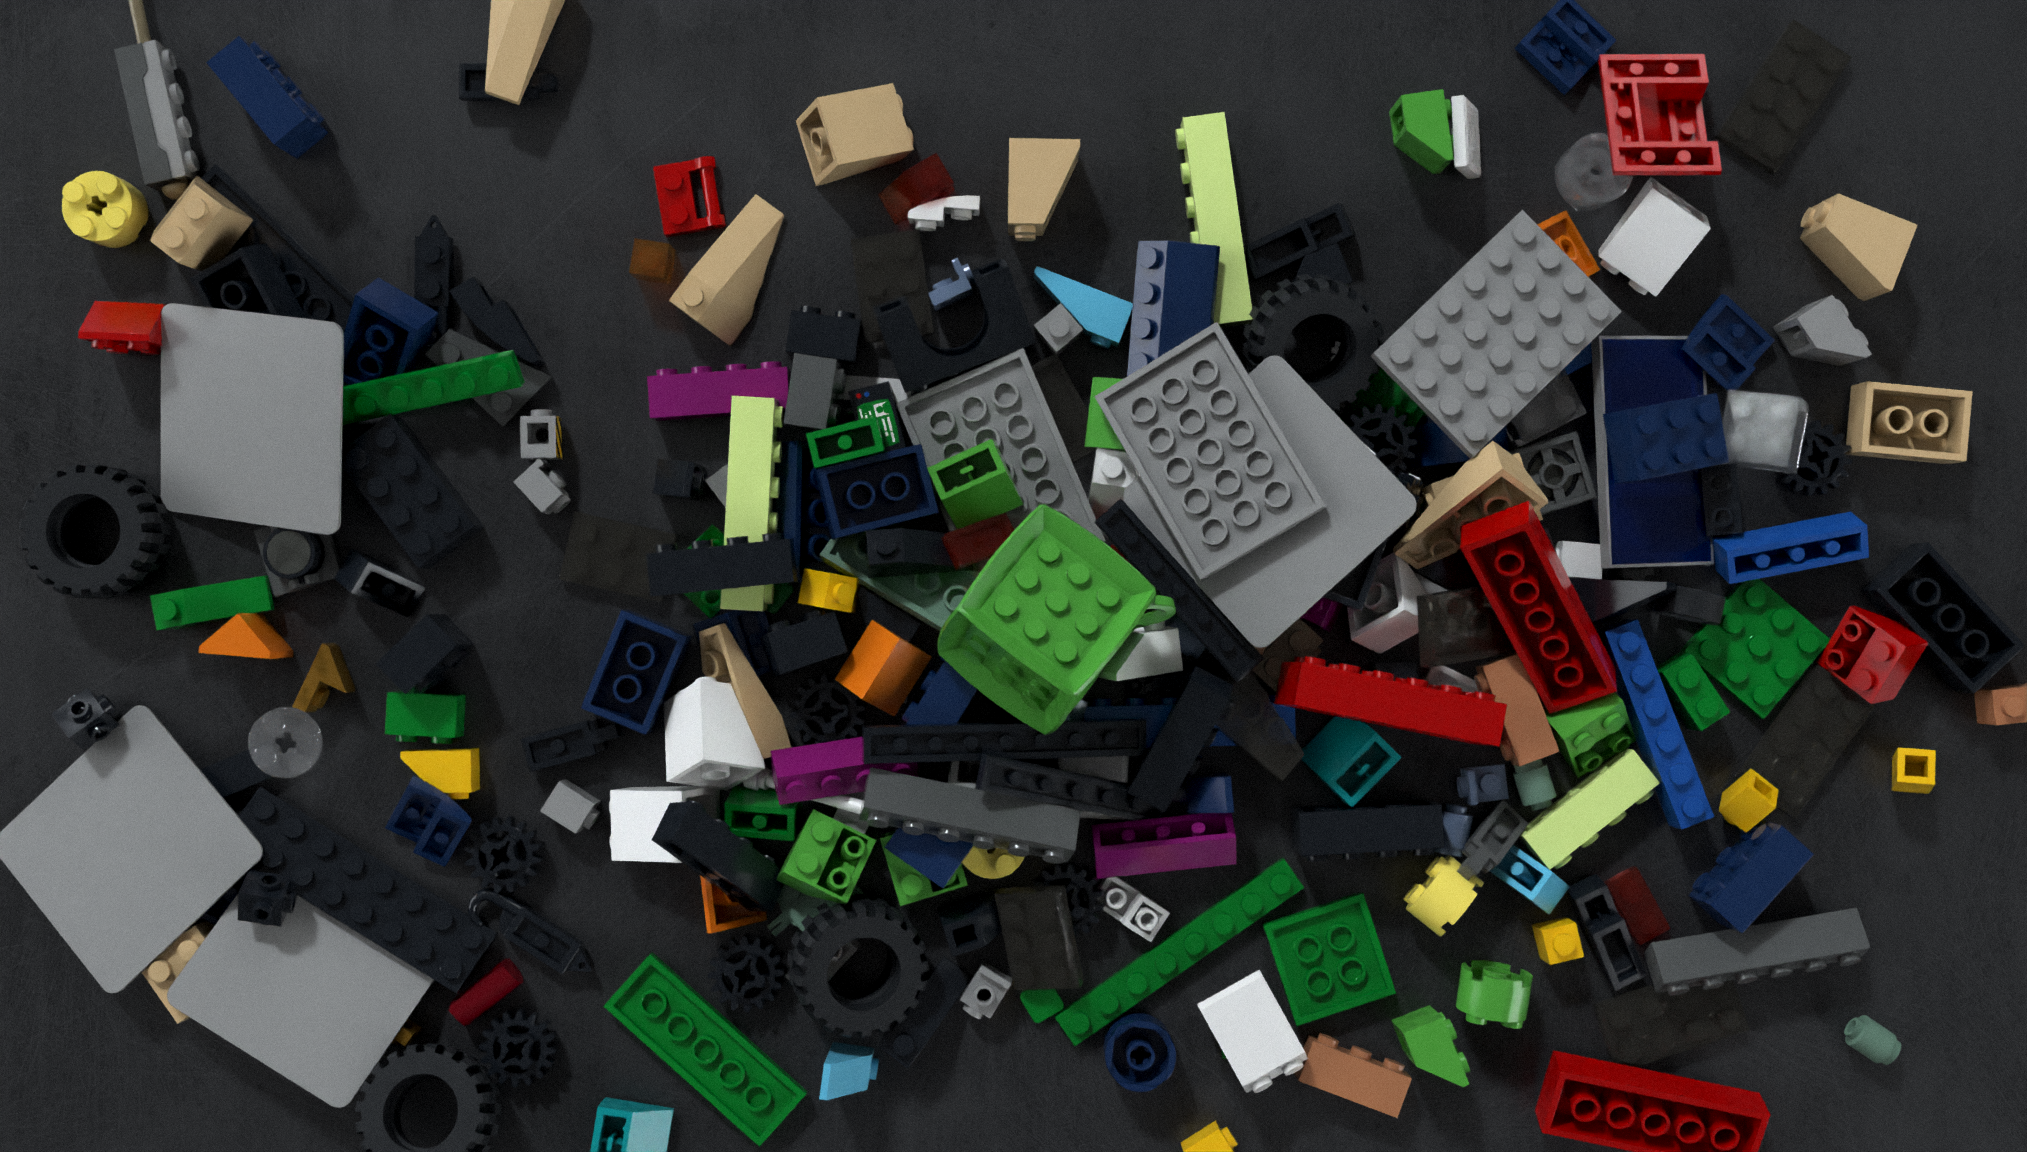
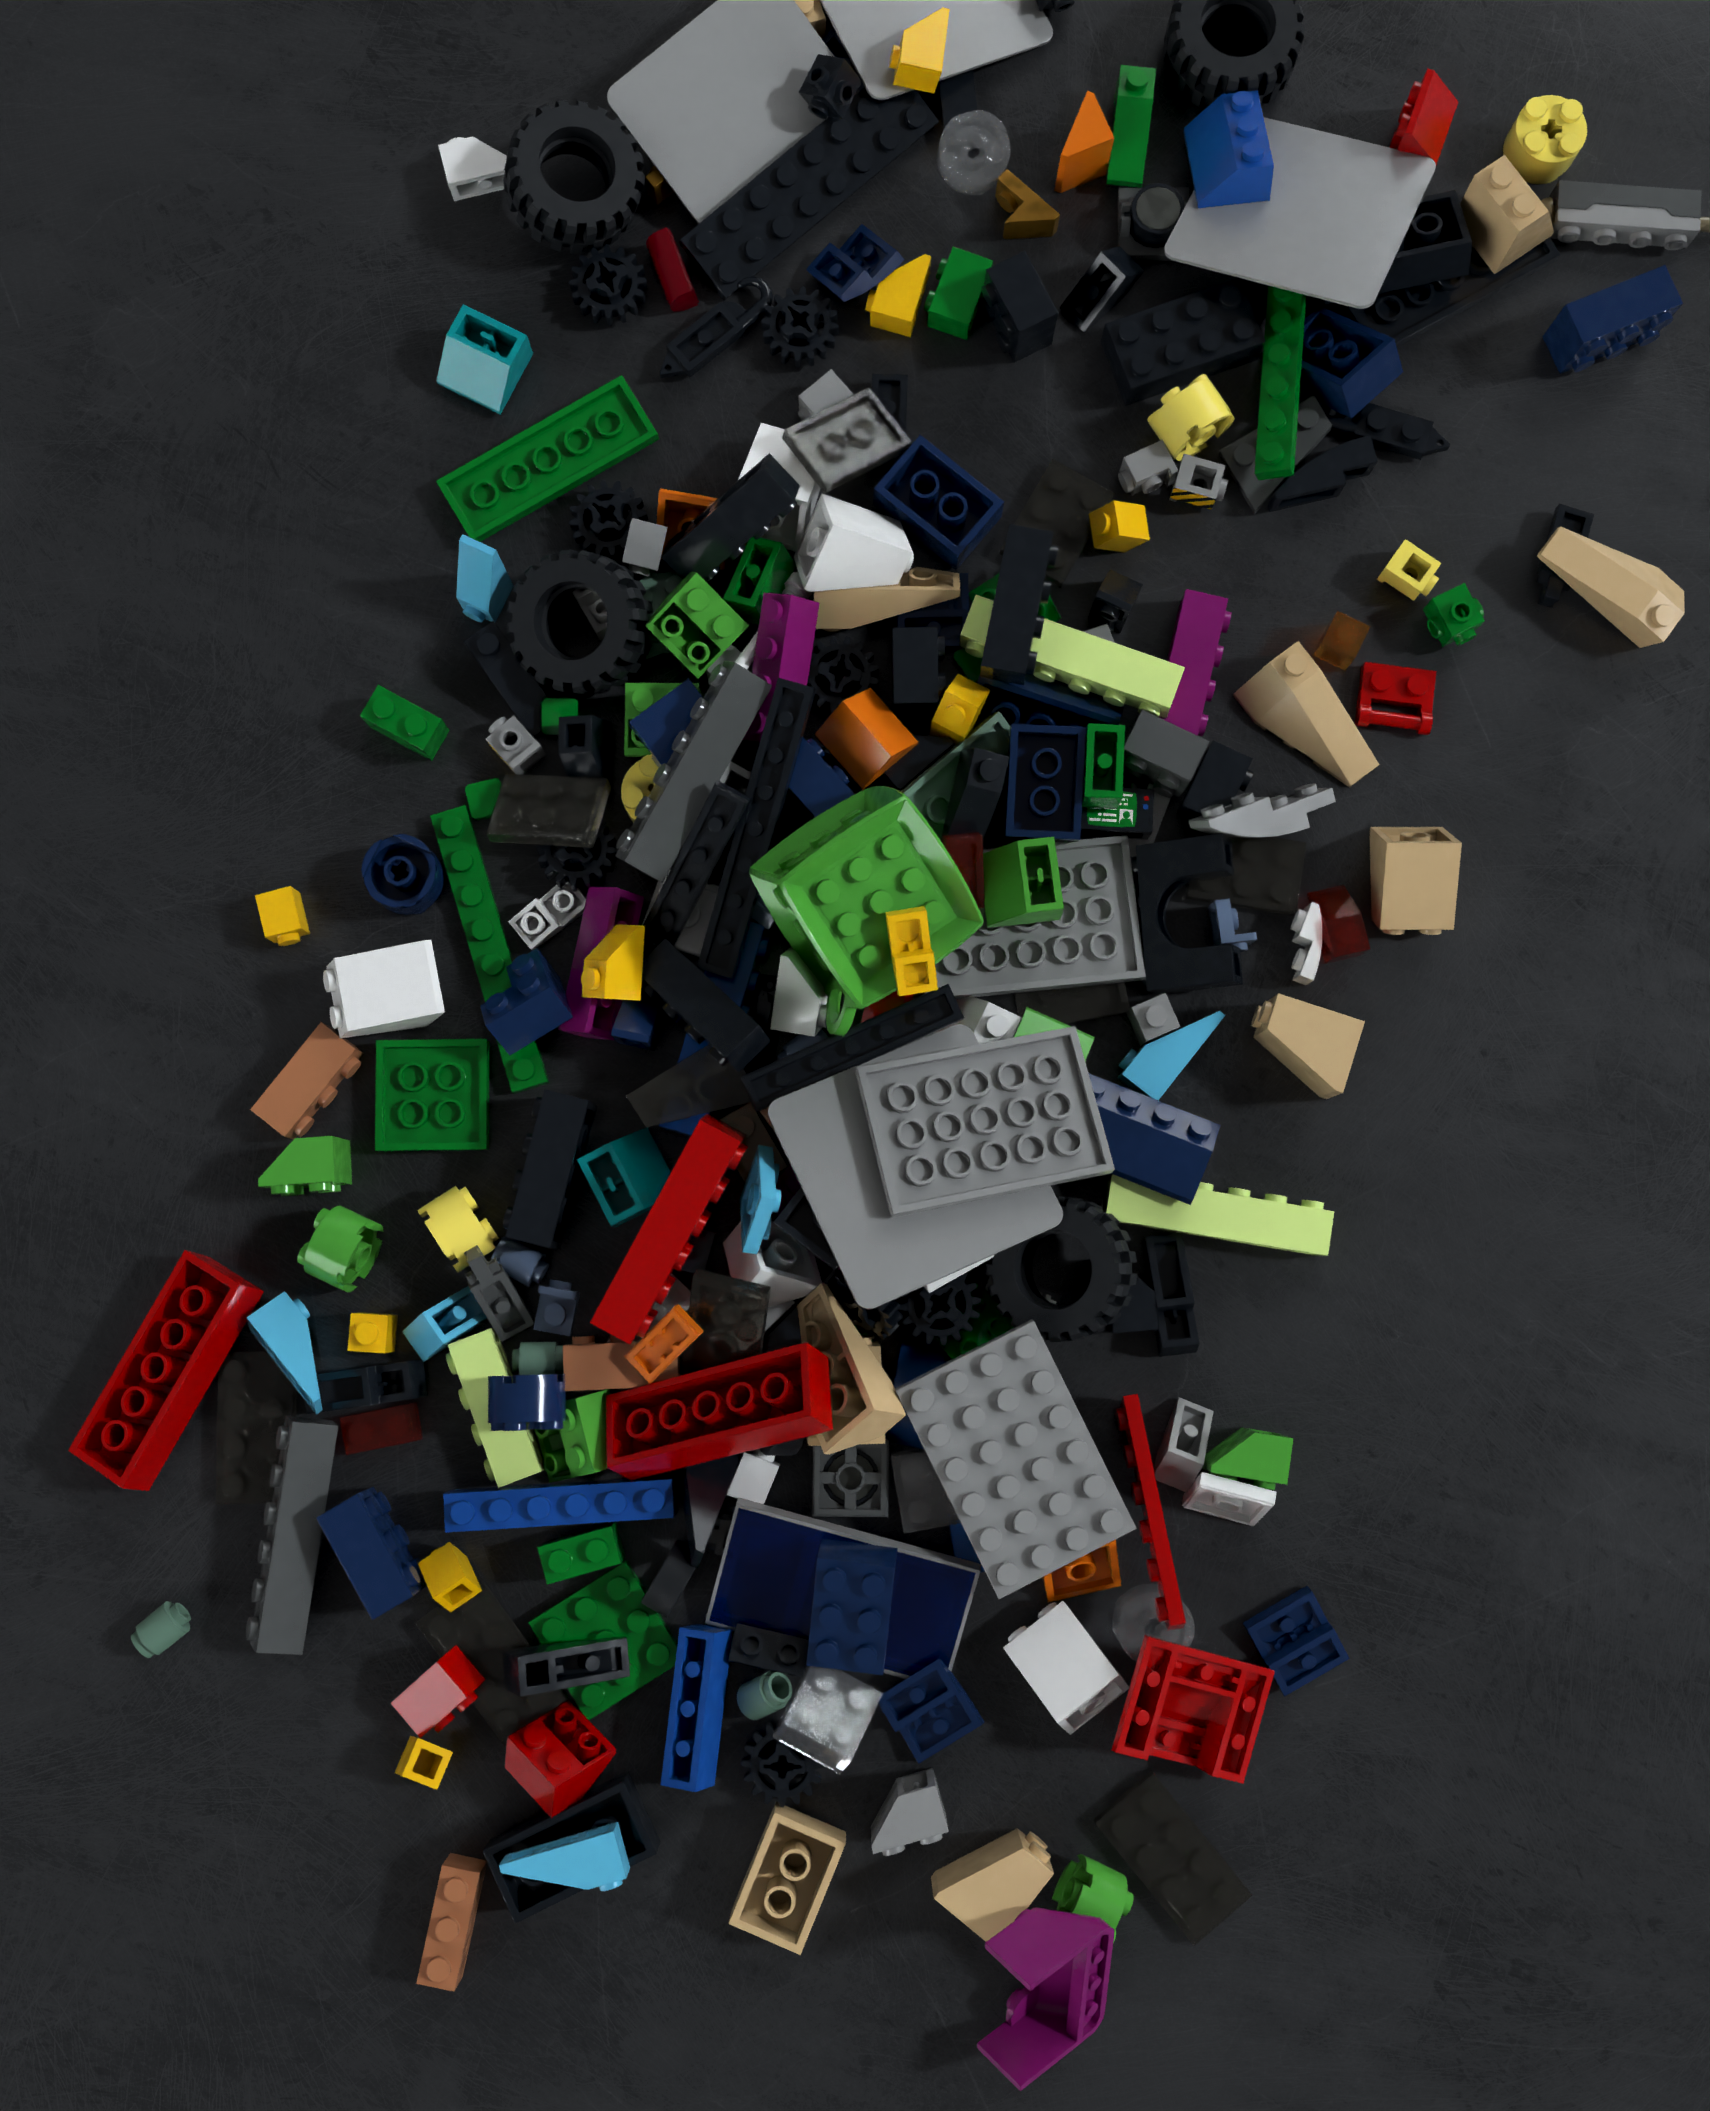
camera: 110 degrees right, 5 degrees down
(205, 822) = (921, 53): none -> yellow slope
(213, 501) = (1230, 152): none -> blue slope
(484, 461) = (1191, 417): none -> light yellow brick
(560, 204) = (1415, 561): none -> light yellow brick
(598, 164) = (1454, 616): none -> green brick
(607, 497) = (1119, 526): none -> yellow brick
(607, 774) = (846, 440): none -> clear smoke plate
(765, 930) = (644, 546): none -> light grey brick
(845, 282) = (1263, 815): none -> light grey slope
(941, 961) = (552, 709): none -> green piece
(997, 1098) = (404, 722): none -> green brick
(1092, 560) = (911, 951): none -> yellow slope
(1168, 828) = (615, 965): none -> yellow slope
(1224, 893) = (530, 1006): none -> dark blue brick
(1341, 630) = (759, 1200): none -> medium azure plate
(1428, 191) = (1183, 1445): none -> light grey slope
(1492, 675) = (664, 1343): none -> orange plate
(1514, 195) = (1153, 1527): none -> red plate
(1581, 781) = (526, 1399): none -> dark blue brick
(1588, 1014) = (285, 1335): none -> medium azure slope
(1761, 492) = (764, 1695): none -> sand green brick
(1794, 674) = (565, 1665): none -> black slope
(1847, 156) = (1093, 1891): none -> bright green brick
(1850, 777) = (438, 1691): none -> brick
(1933, 162) = (1066, 1979): none -> magenta windscreen
(1959, 609) = (576, 1861): none -> medium azure slope

